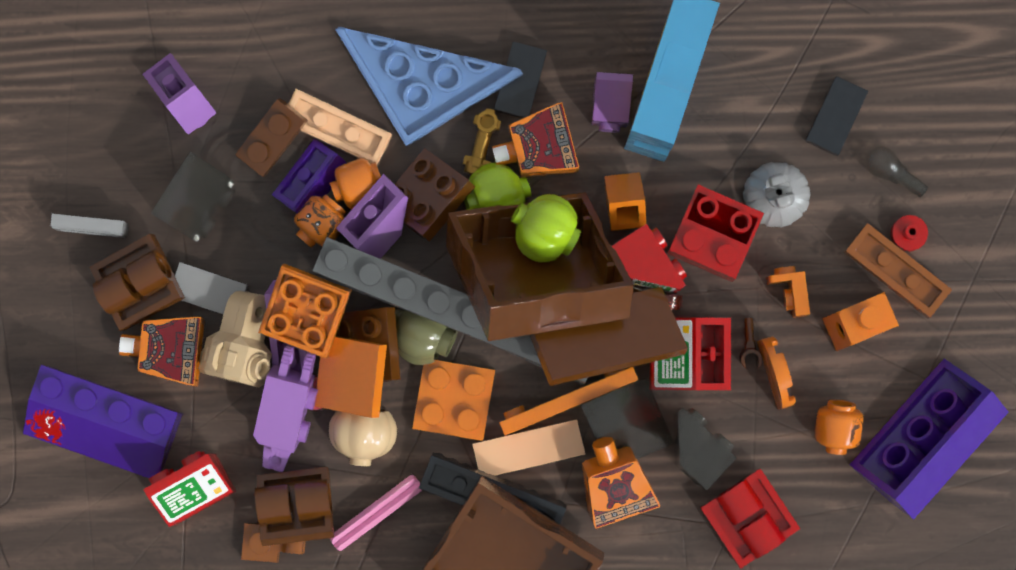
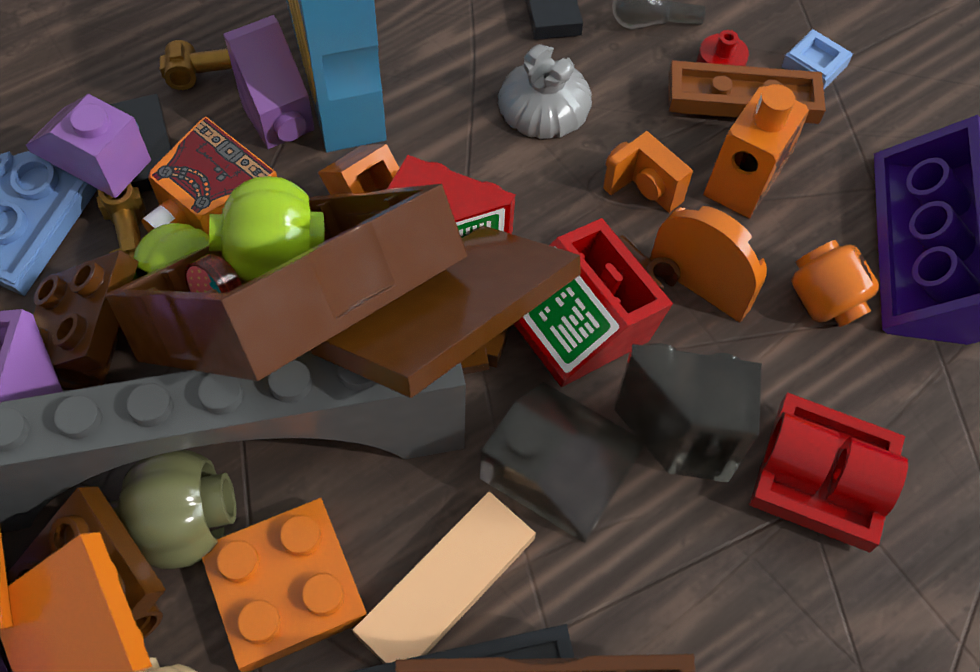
camera: 35 degrees left, 25 degrees down
(485, 86) = (93, 144): none -> medium lavender slope
(503, 239) = (211, 273): none -> clear red tile
(519, 418) = (405, 541): orange plate -> none
(573, 34) = (183, 62): none -> pearl gold bar
(615, 484) = (613, 539): orange torso -> none
(715, 233) = (514, 147): red slope -> none
(967, 272) = (818, 55): none -> light blue tile

